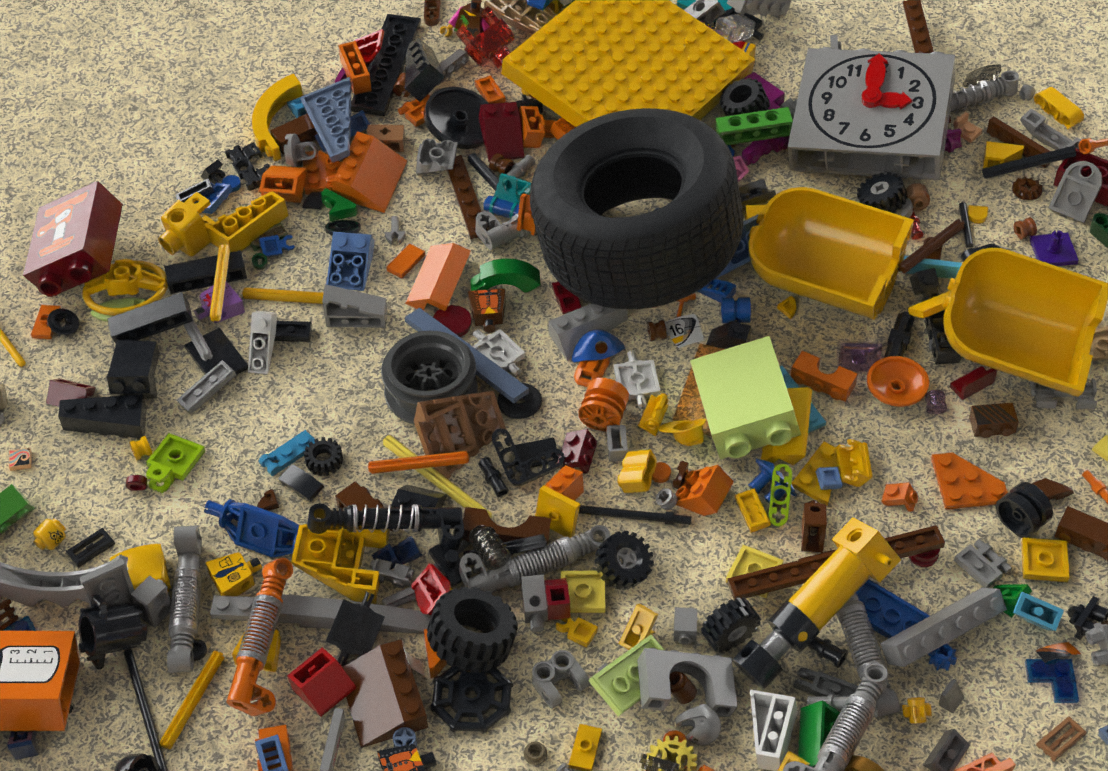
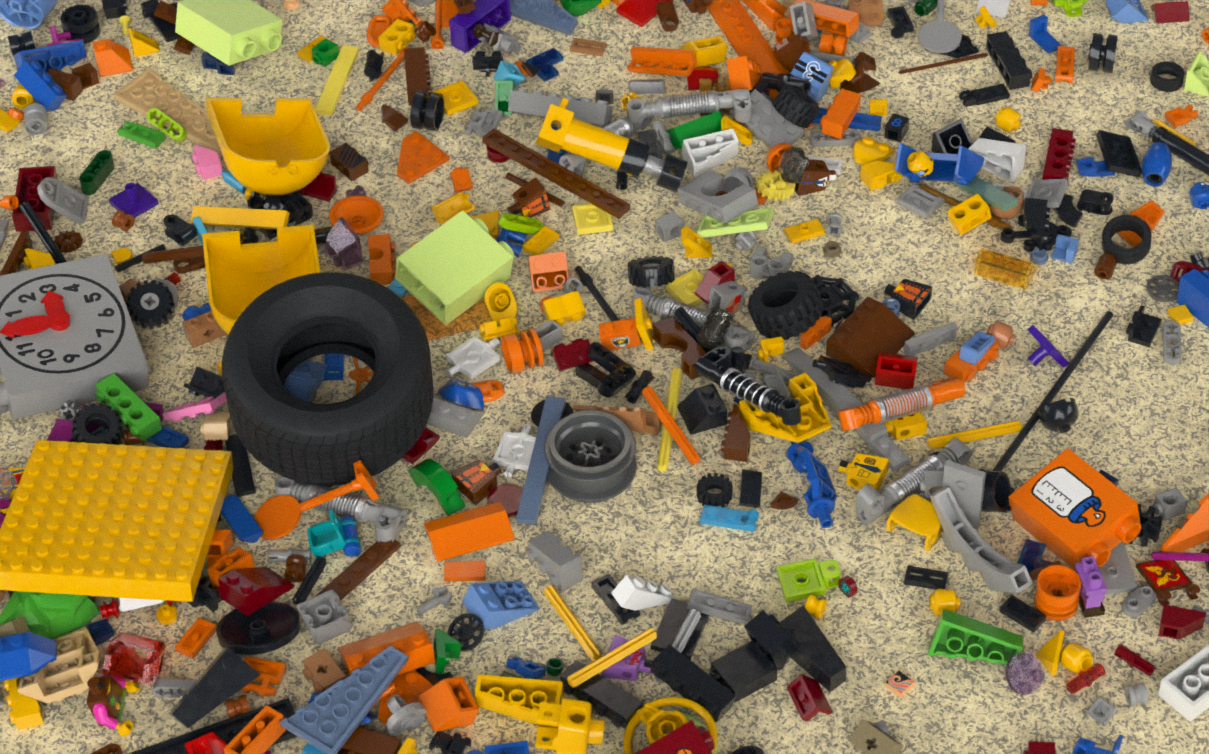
camera: 125 degrees left, 5 degrees down
(429, 588) = (776, 345): red slope -> none
(683, 470) = (543, 289): reddish brown tile -> none
(730, 624) = (654, 194): black wheel -> none
(829, 478) = (480, 212): medium blue tile -> none

